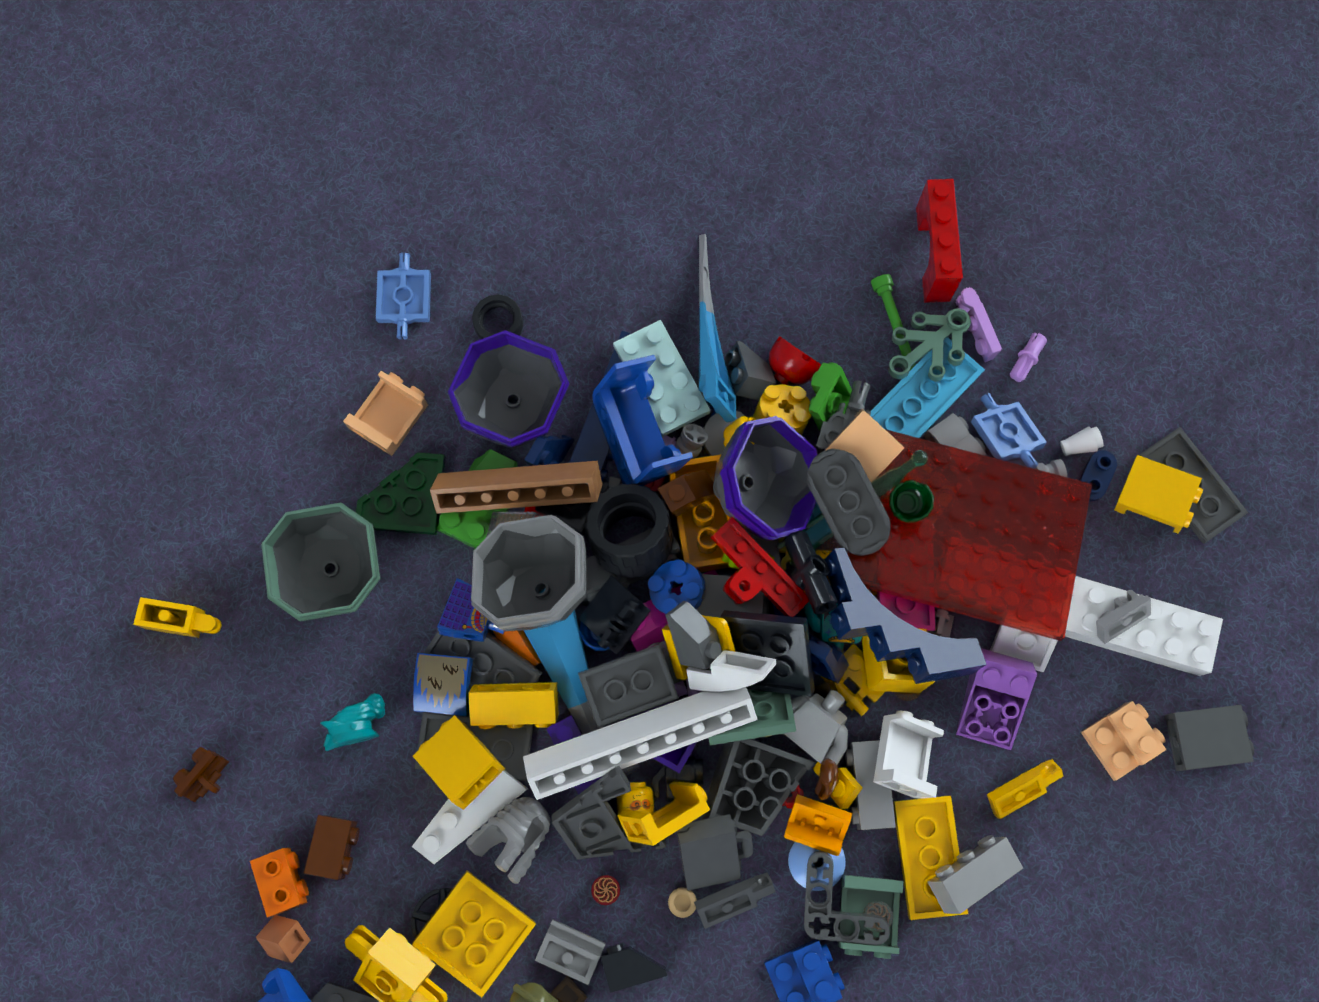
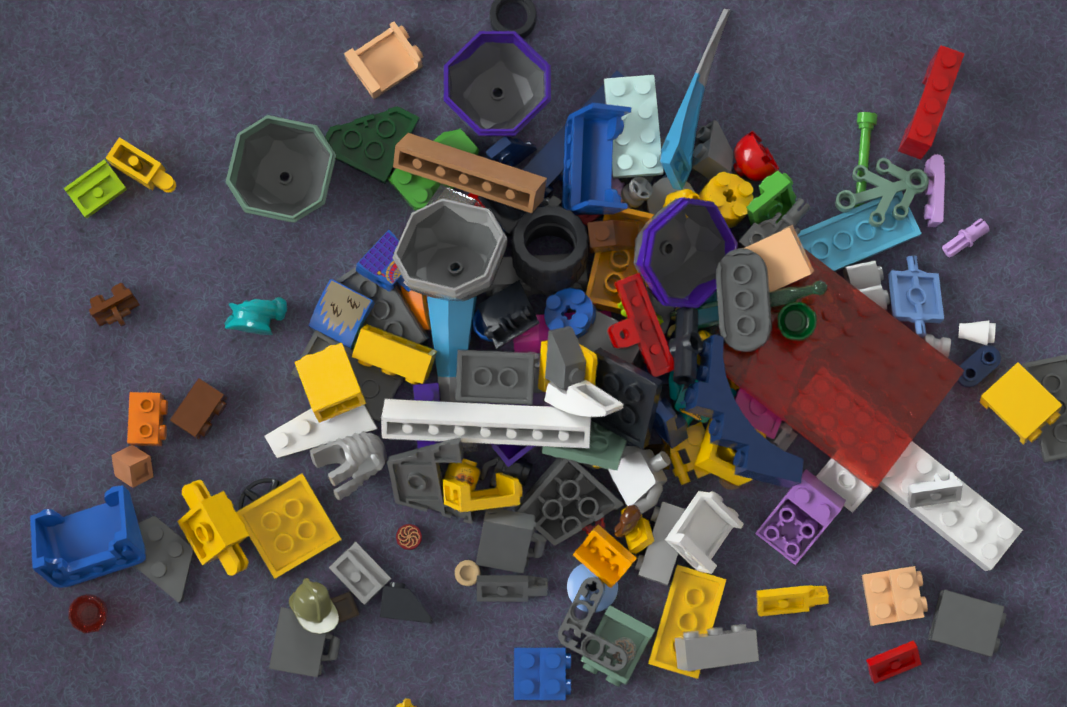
camera: 20 degrees right, 5 degrees up
(137, 660) = (95, 189): none -> lime plate
(1156, 809) = (893, 662): none -> red plate

